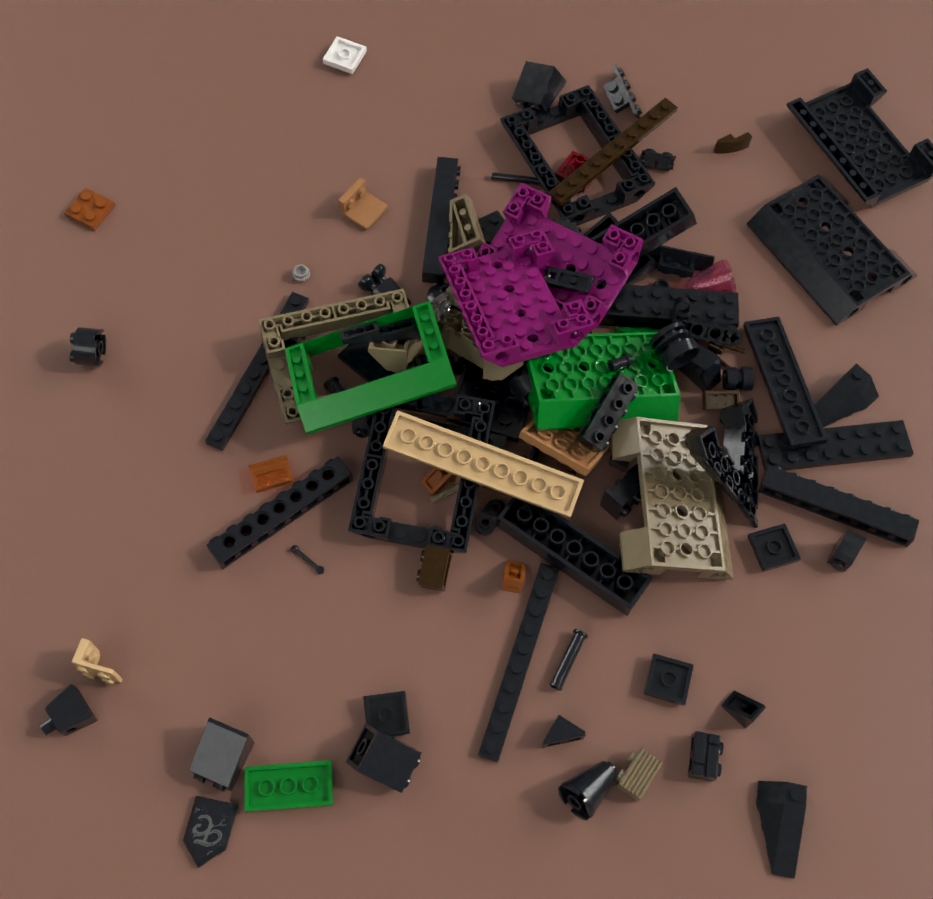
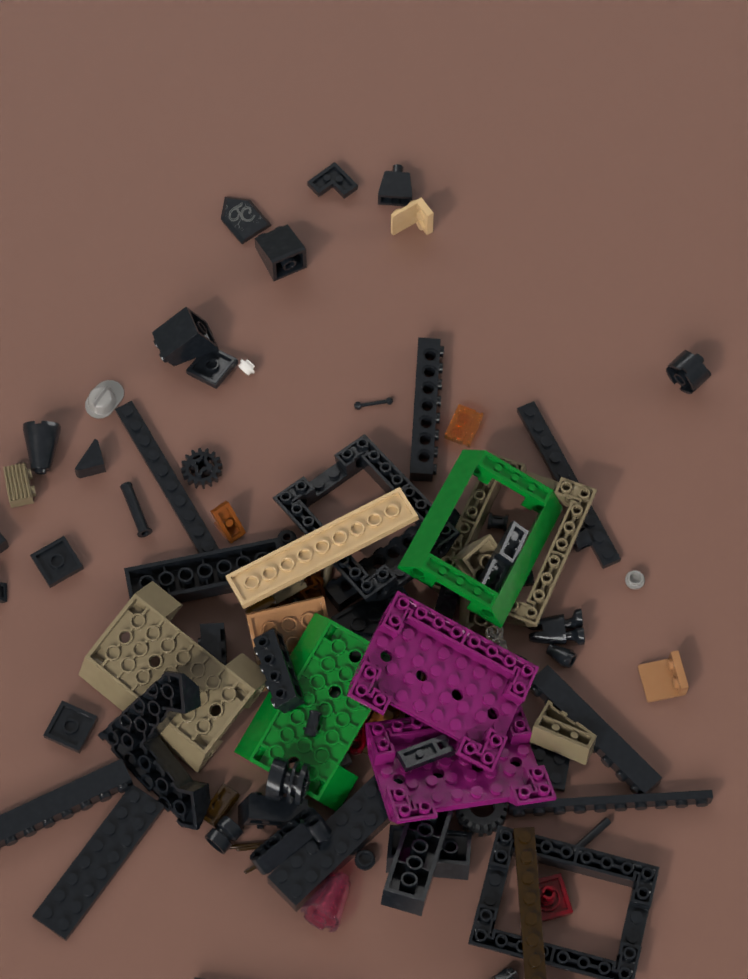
camera: 135 degrees right, 0 degrees up
(99, 780) = (333, 177): none -> black plate
(288, 786) = (223, 277): green plate -> none
(362, 684) = (246, 367): none -> white plate
(403, 275) = (562, 655): none -> black cone
(434, 568) = (281, 470): dark brown brick -> none
(468, 168) = (617, 802): none -> black plate
(479, 642) = (196, 462): none -> black gear
(494, 783) = (104, 399): none -> light grey piece
(538, 86) = (670, 941): black slope -> none
(680, 261) = (367, 897): black bracket -> none
(785, 383) = (187, 869): black plate -> none
(846, 550) = (15, 771): black slope -> none
(849, 395) = (127, 913): black wedge -> none

